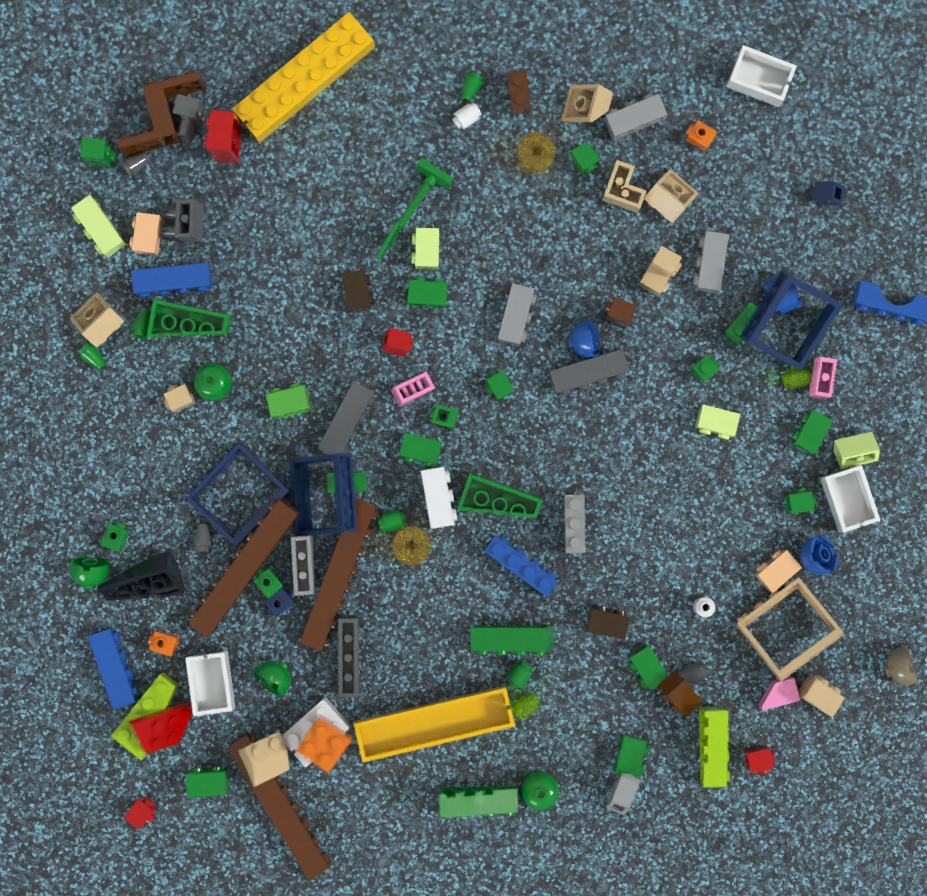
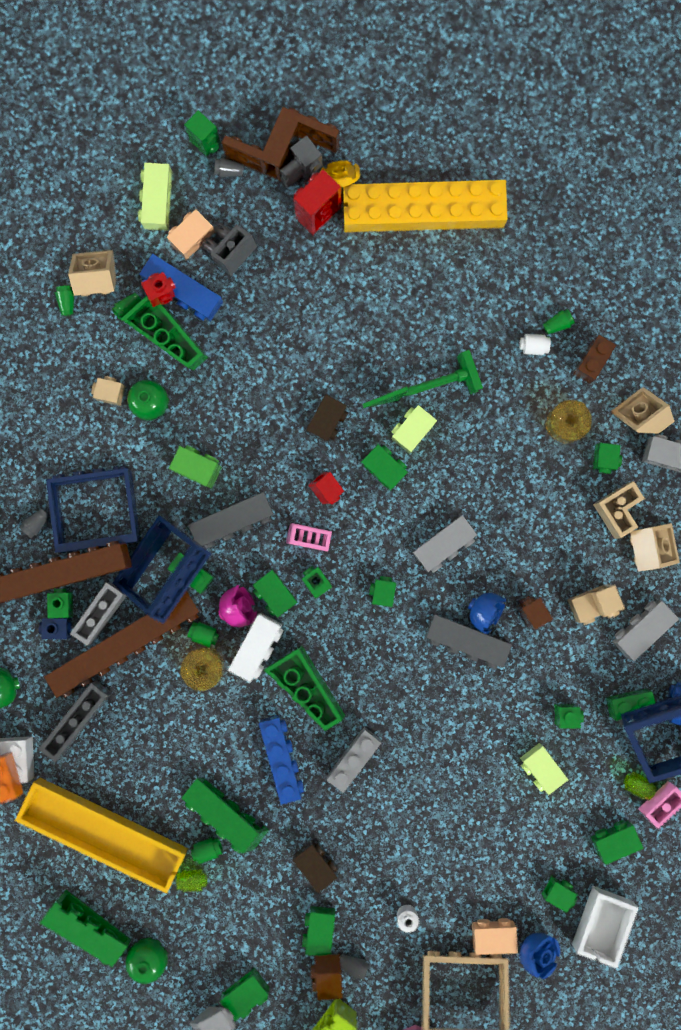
camera: 40 degrees right, 0 degrees up
(158, 292) = (159, 289): none -> red brick
(223, 100) = (343, 172): none -> yellow tile
(400, 481) = (236, 607): none -> dark pink cylinder
(856, 450) = (643, 889): yellowish green brick -> none

